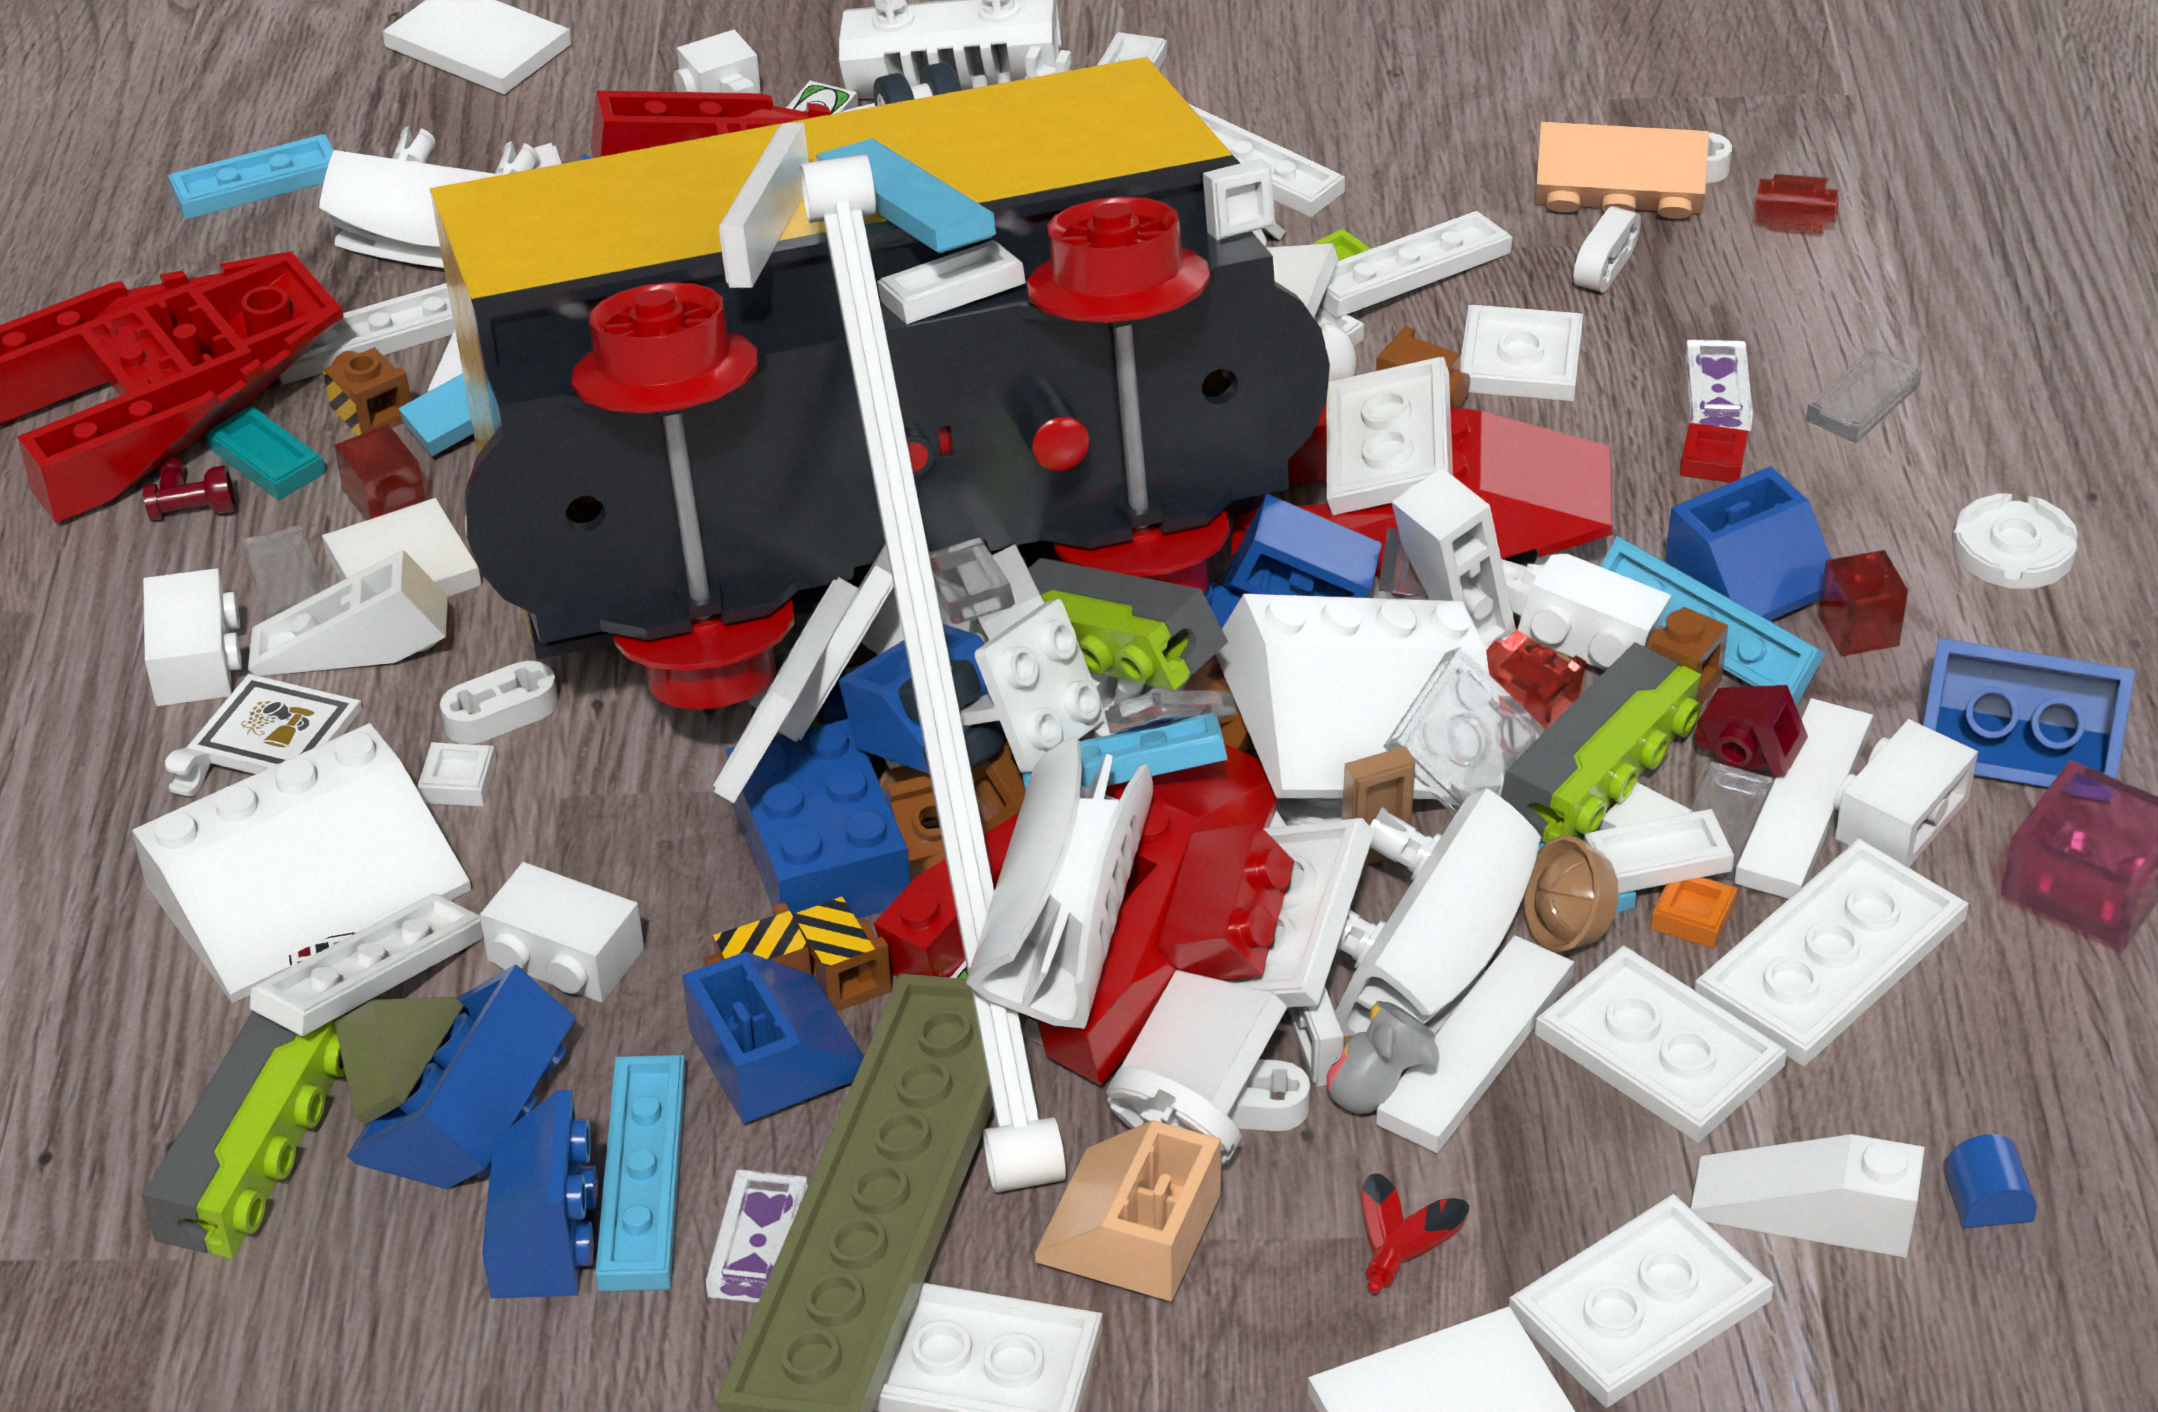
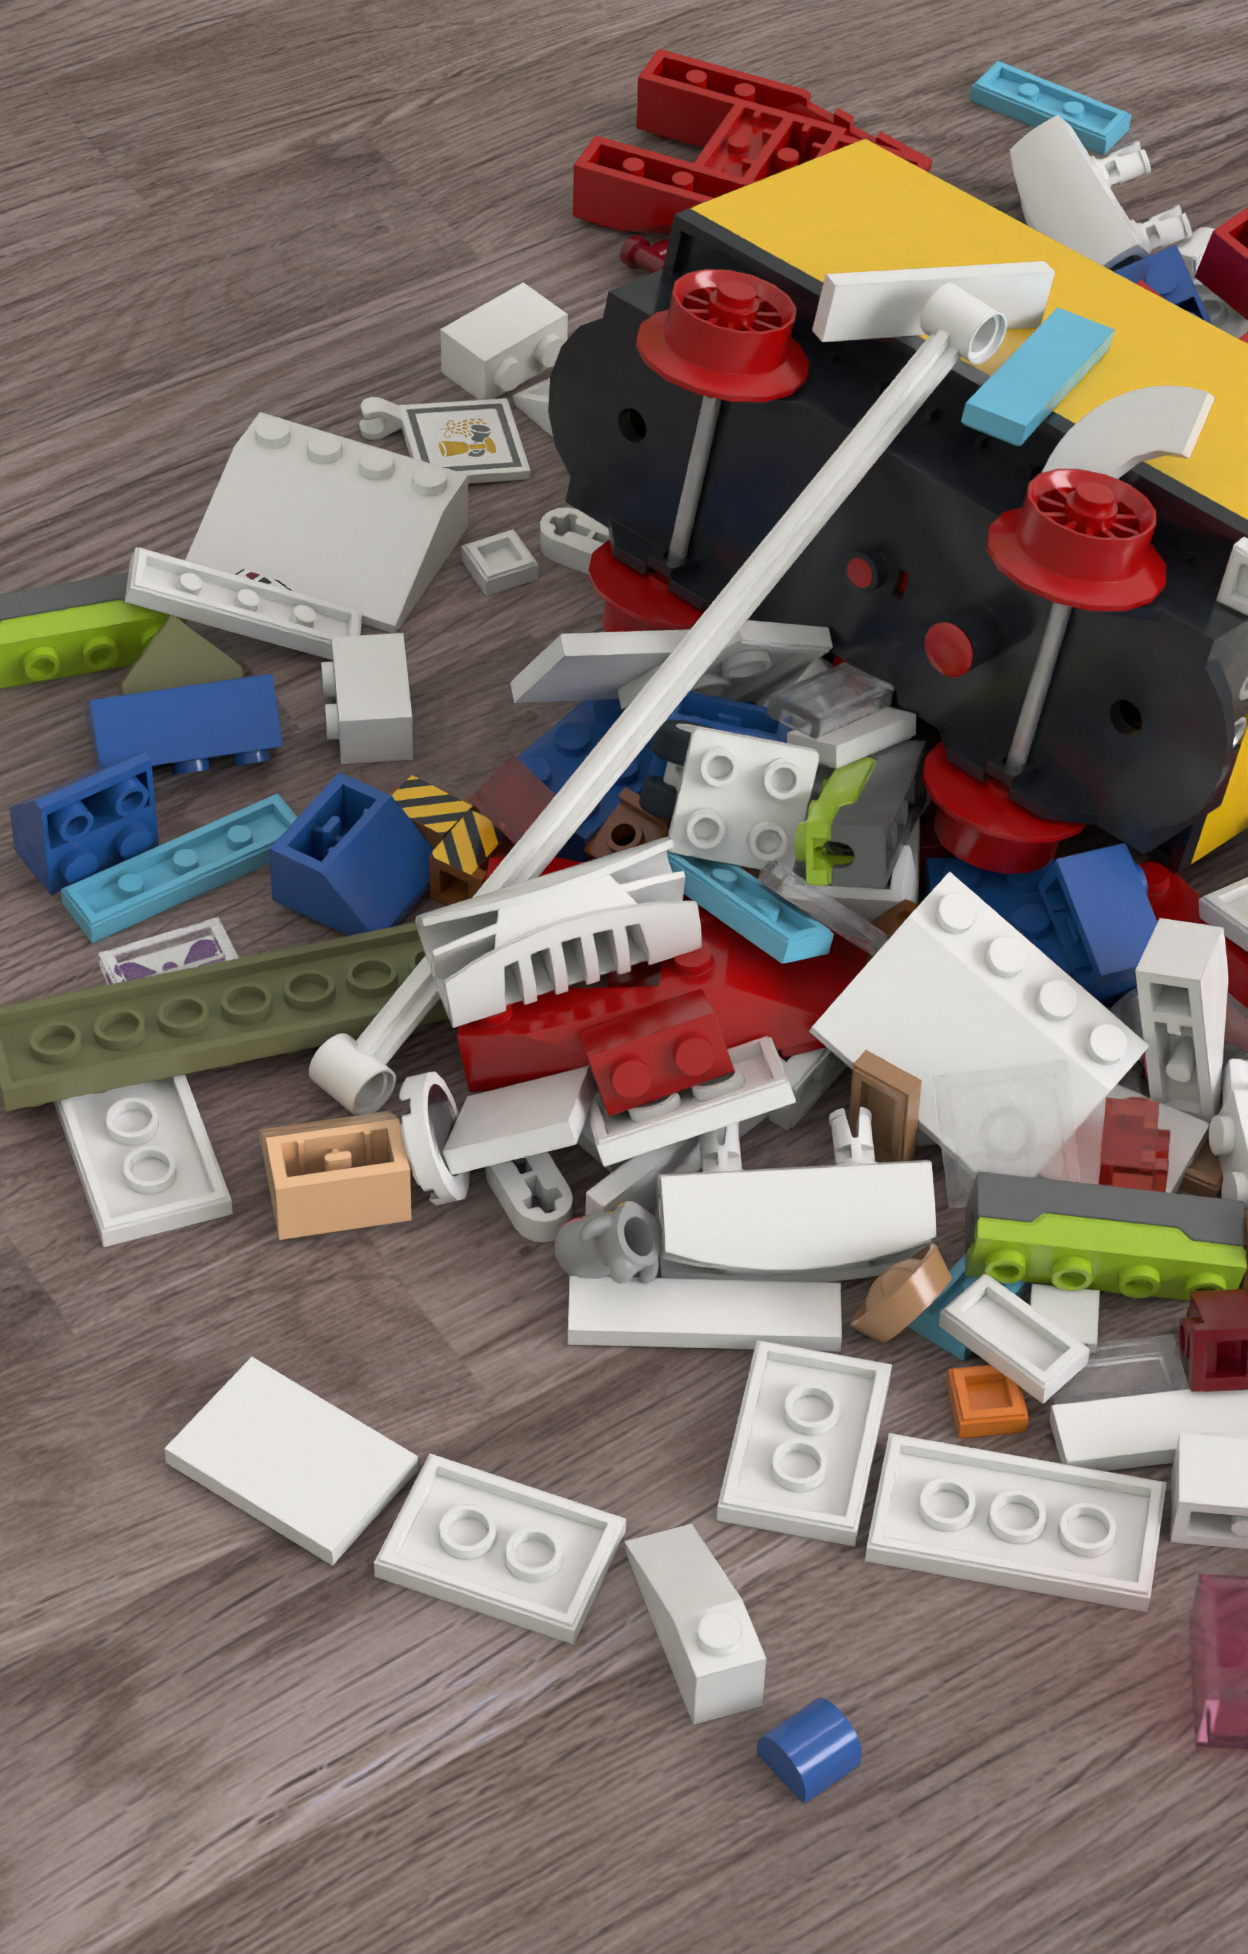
camera: 55 degrees right, 5 degrees up
(859, 861) = (512, 798): none -> clear red brick
(951, 281) = (980, 460): white tile -> none
(1045, 167) = (1133, 430): none -> white tile
(1399, 1239) = (457, 1358): red piece -> none

